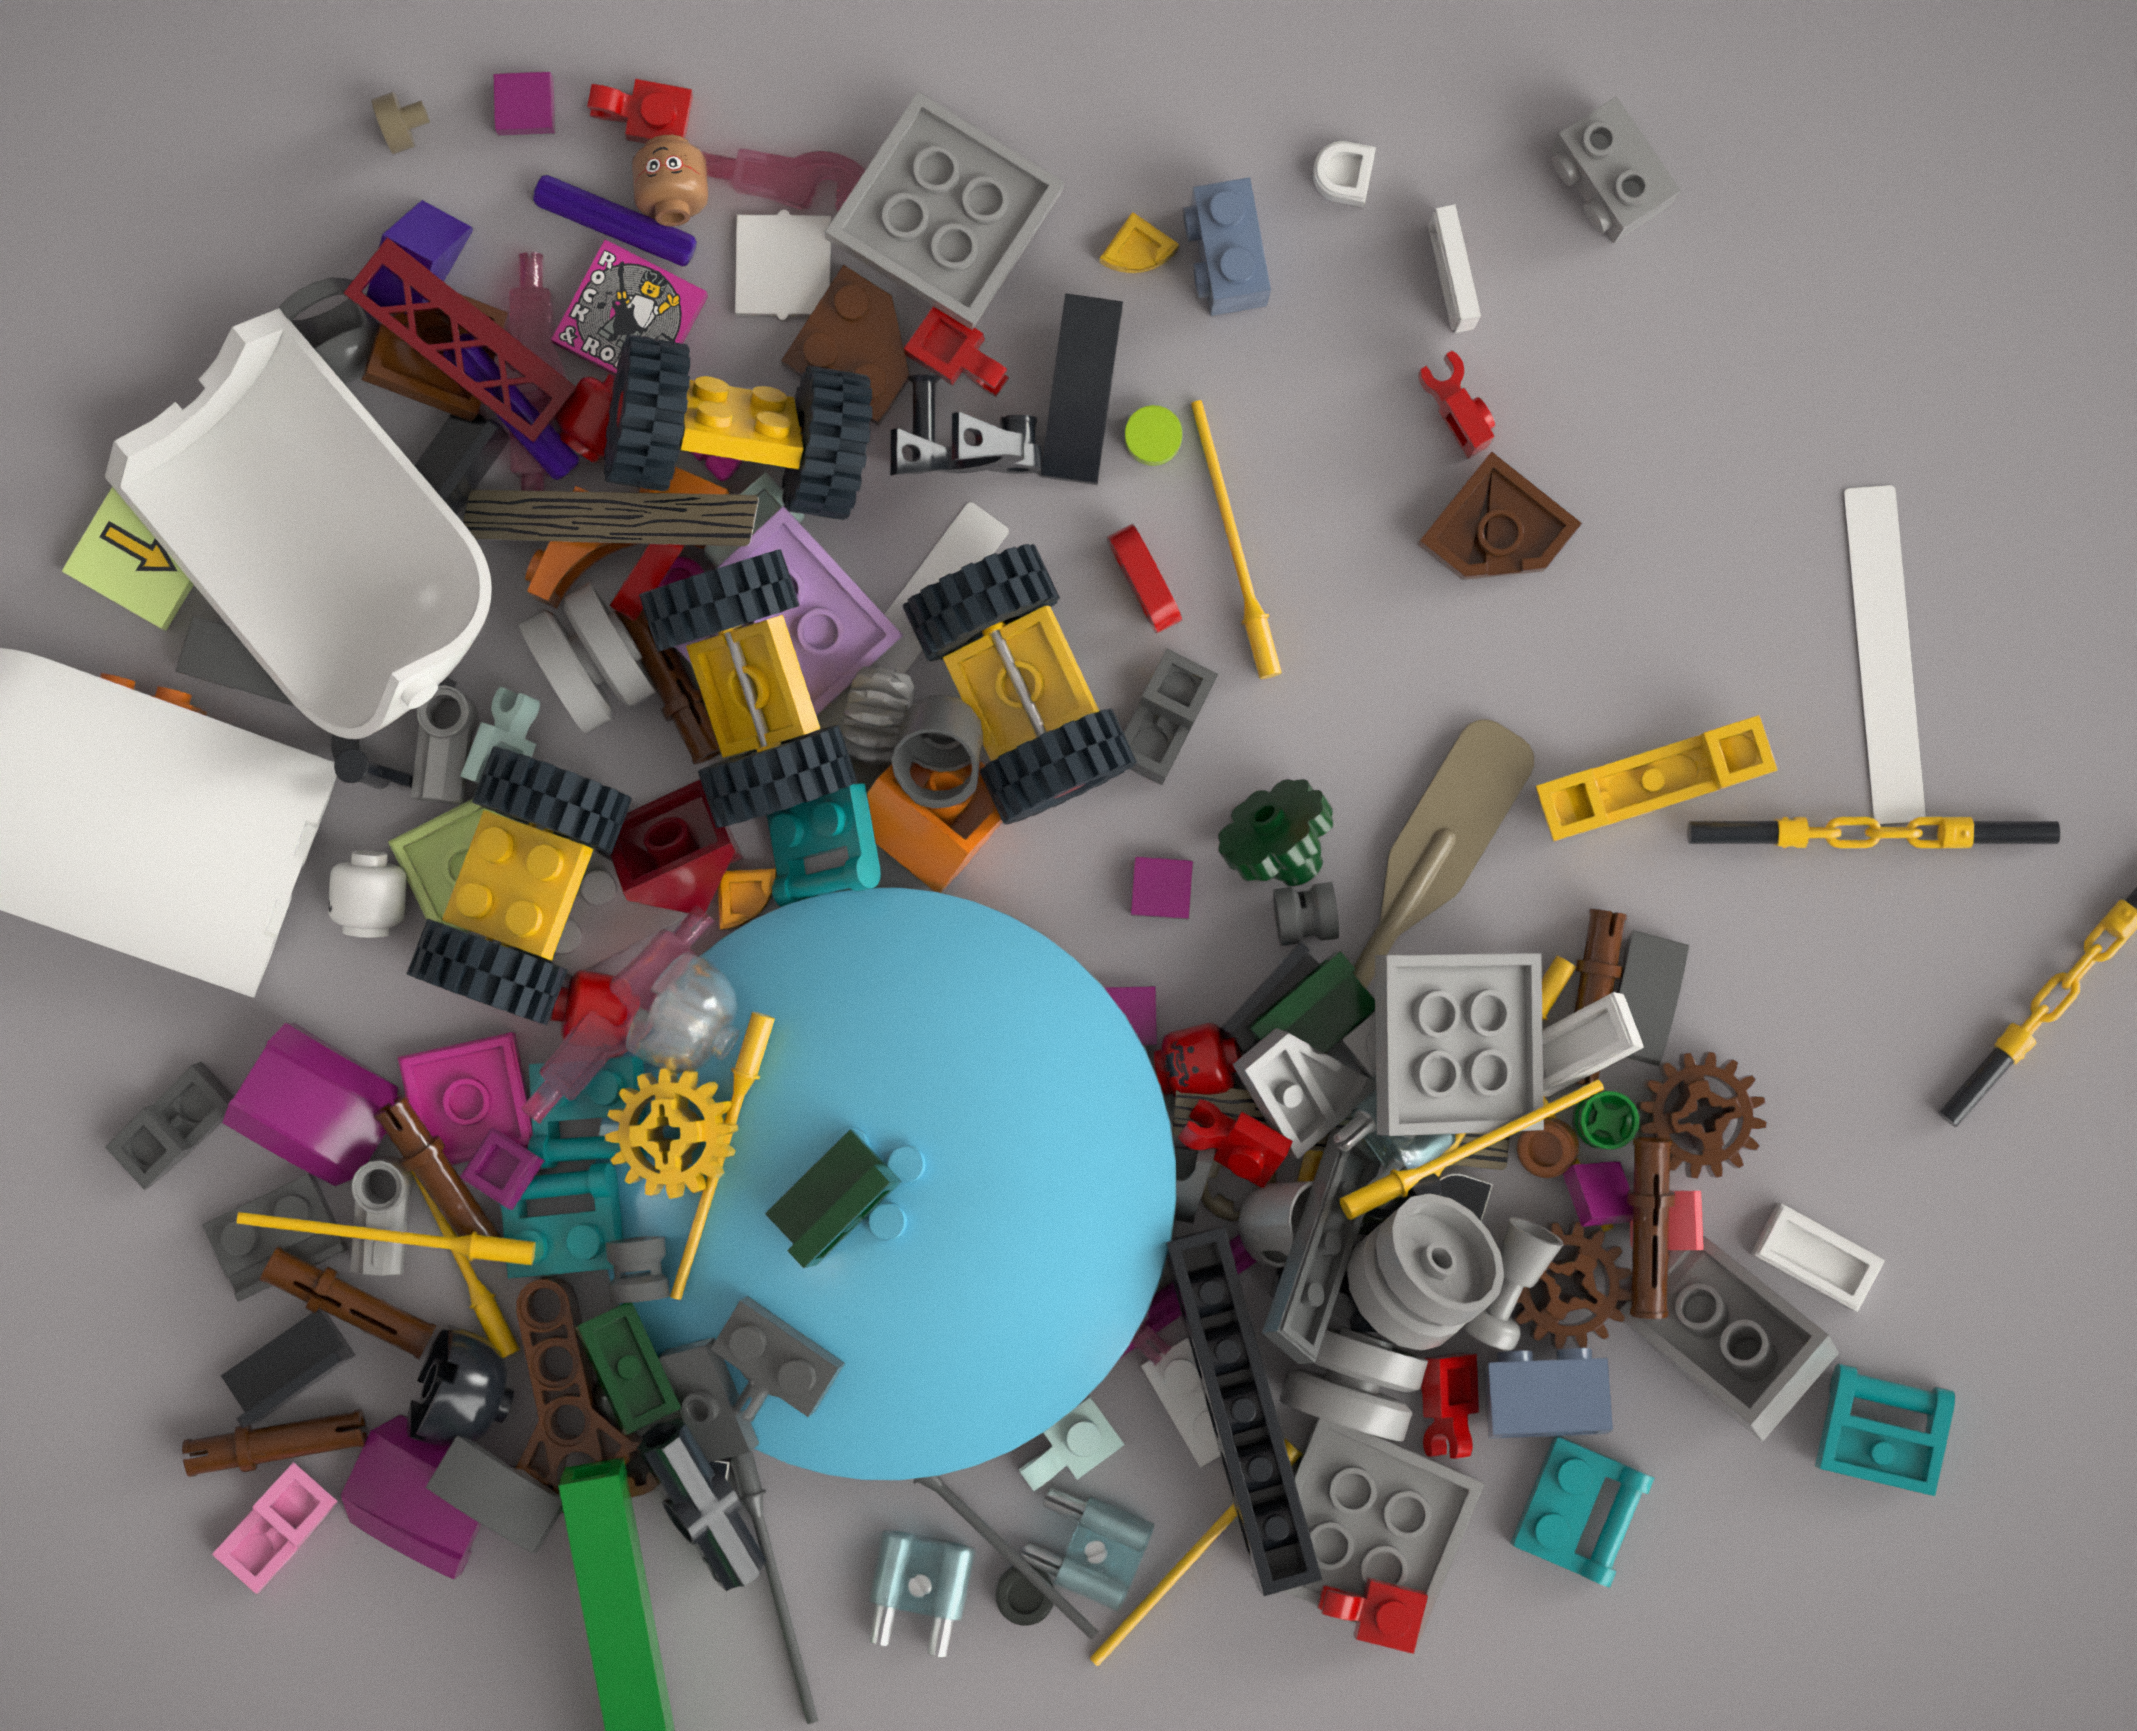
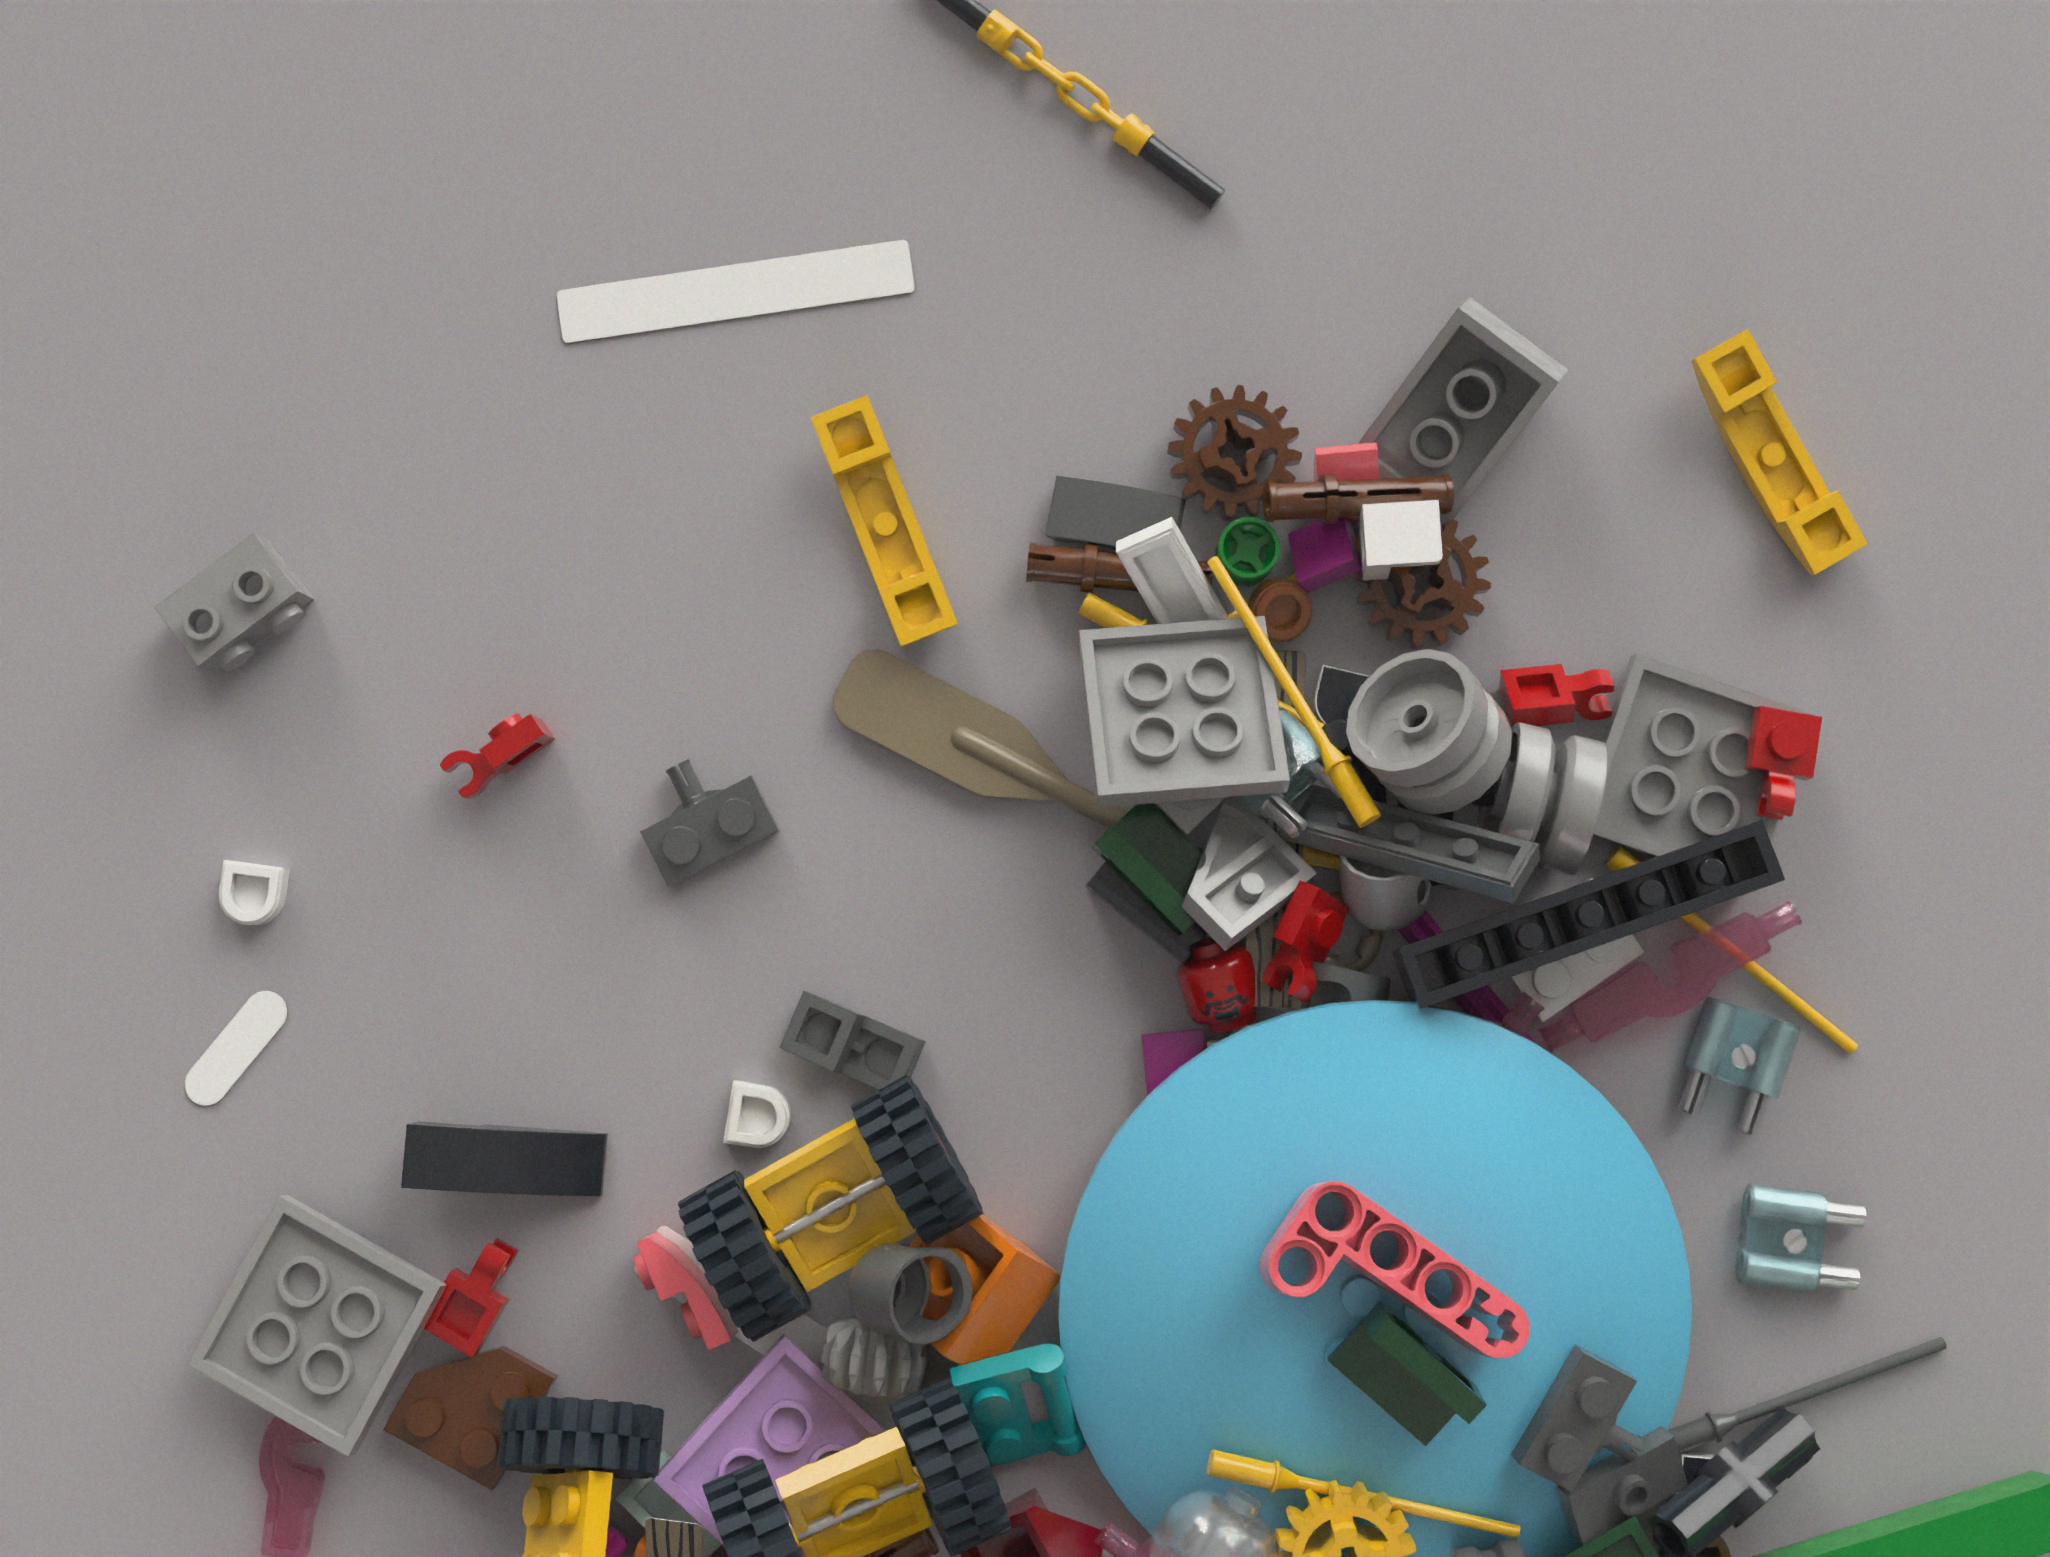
camera: 85 degrees left, 0 degrees up
(744, 896) = (1076, 1485): light orange tile -> none
(781, 264) = (386, 1497): white piece -> none
(920, 1200) = (1403, 1279): none -> coral beam
(936, 1484) = (1755, 1144): dark grey piece -> none
(968, 534) = (671, 1272): none -> coral slope
(996, 449) = (576, 1256): black piece -> none
(1020, 1599) = (1792, 1127): pearl dark grey tile -> none
(1077, 1441) = (1630, 1085): light aqua plate -> none
(1104, 623) = (756, 1115): none -> white tile
(1138, 247) = (346, 1108): yellow tile -> none
(1144, 578) = (705, 1077): red beam -> none
(1153, 435) = (550, 1077): lime tile -> none
(1161, 888) = (1035, 1034): magenta tile -> none
(1186, 1519) = (1700, 963): none -> clear pink piece
(1195, 144) = (235, 1048): none -> white sticker
(1229, 247) = (339, 1010): sand blue brick -> none
(1254, 616) = (739, 955): yellow piece -> none
(1278, 834) = (971, 916): dark green plant -> none
(1306, 913) = (1053, 880): dark grey wheel -> none
(1378, 594) = (707, 824): none -> dark grey plate
(1454, 269) = (351, 768): white tile -> none
(1498, 526) = (625, 702): reddish brown plate -> none
(1525, 1257) = (1402, 628): light grey piece -> none
(1548, 1395) = (1541, 593): sand blue brick -> none
(1564, 1501) = (1647, 570): teal plate -> none
(1612, 1261) = (1399, 536): none -> white panel
(1668, 1633) = (1771, 455): none -> yellow slope
(1817, 1257) = (1370, 324): white tile -> none
(1880, 1449) = (1564, 248): teal plate -> none
(1951, 832) = (919, 211): piece -> none

